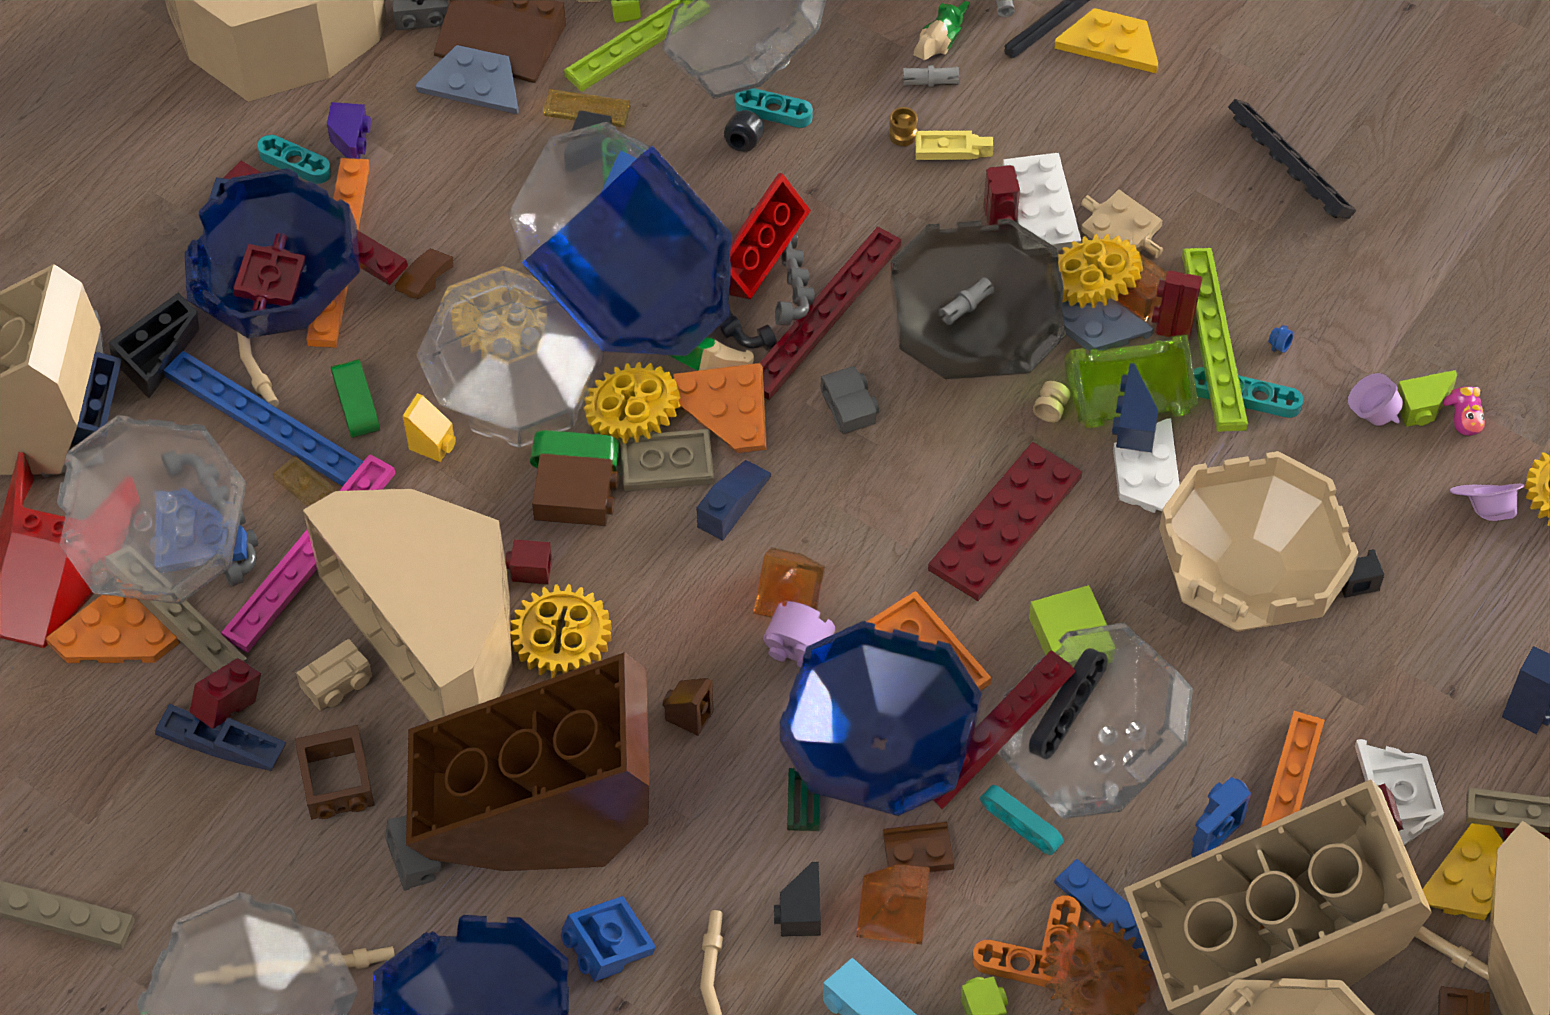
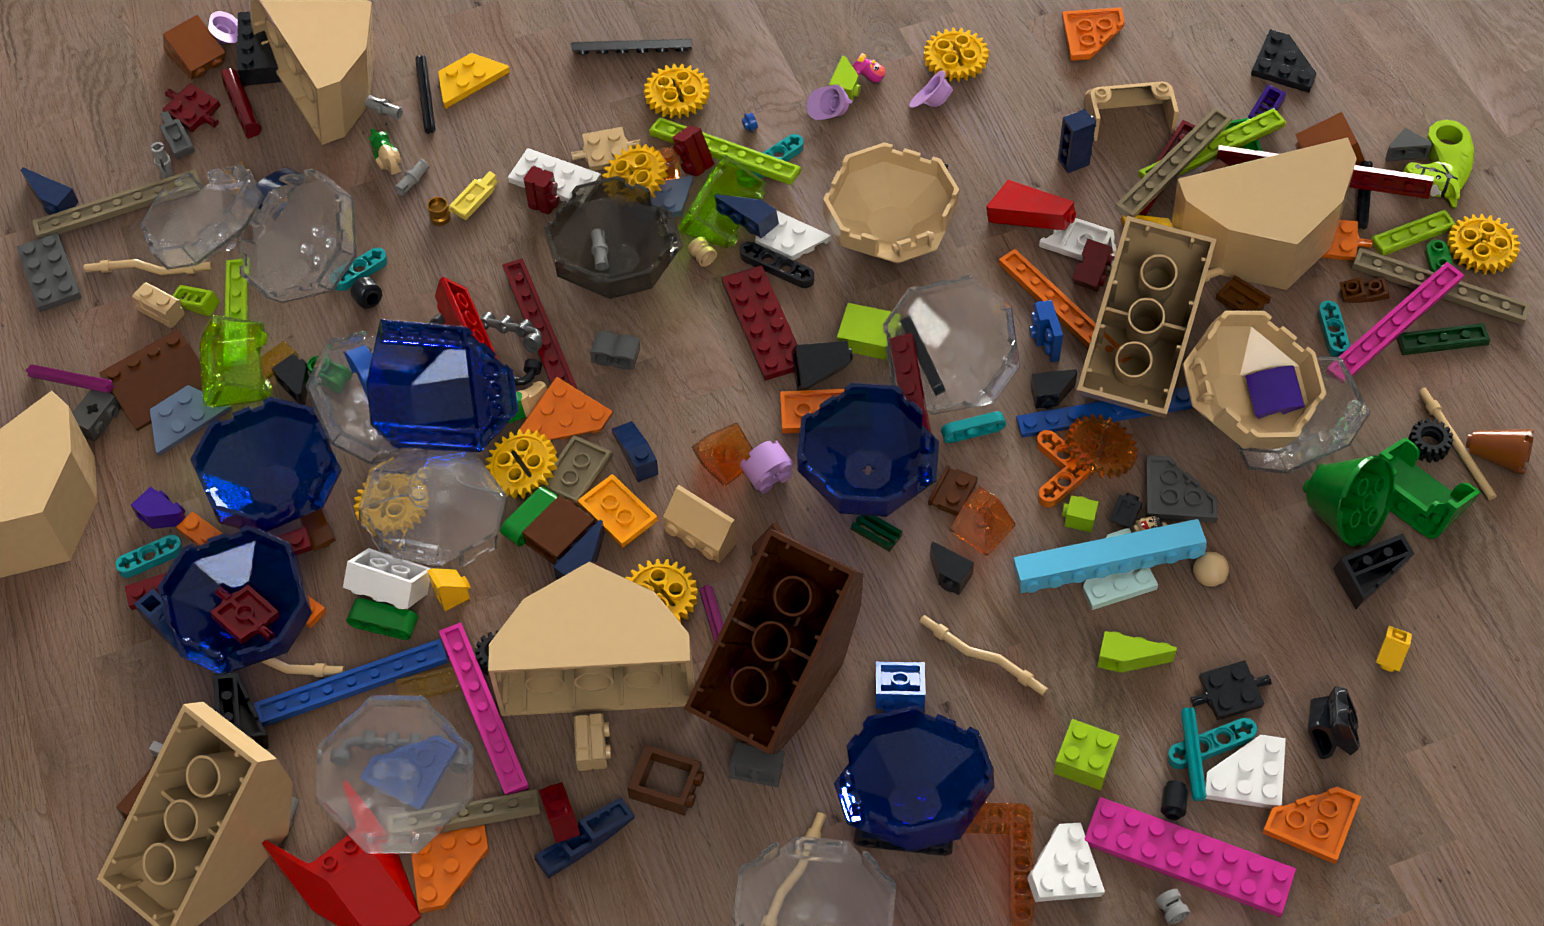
camera: 55 degrees left, 0 degrees up
(391, 366) = (386, 578): none -> white brick
(442, 177) = (266, 465): none -> clear blue windscreen
(560, 75) = (232, 362): none -> clear neon green windscreen
(560, 527) = (581, 551): none -> dark blue slope
(640, 528) = (619, 509): none -> light orange plate
(670, 616) = (700, 525): none -> tan slope
(984, 606) = (819, 362): none -> black slope
(1097, 486) = (775, 267): none -> black beam
(1135, 865) = (1052, 387): none -> black slope
(1275, 255) = (688, 84): none -> yellow gear
(1396, 698) = (1030, 207): none -> red slope

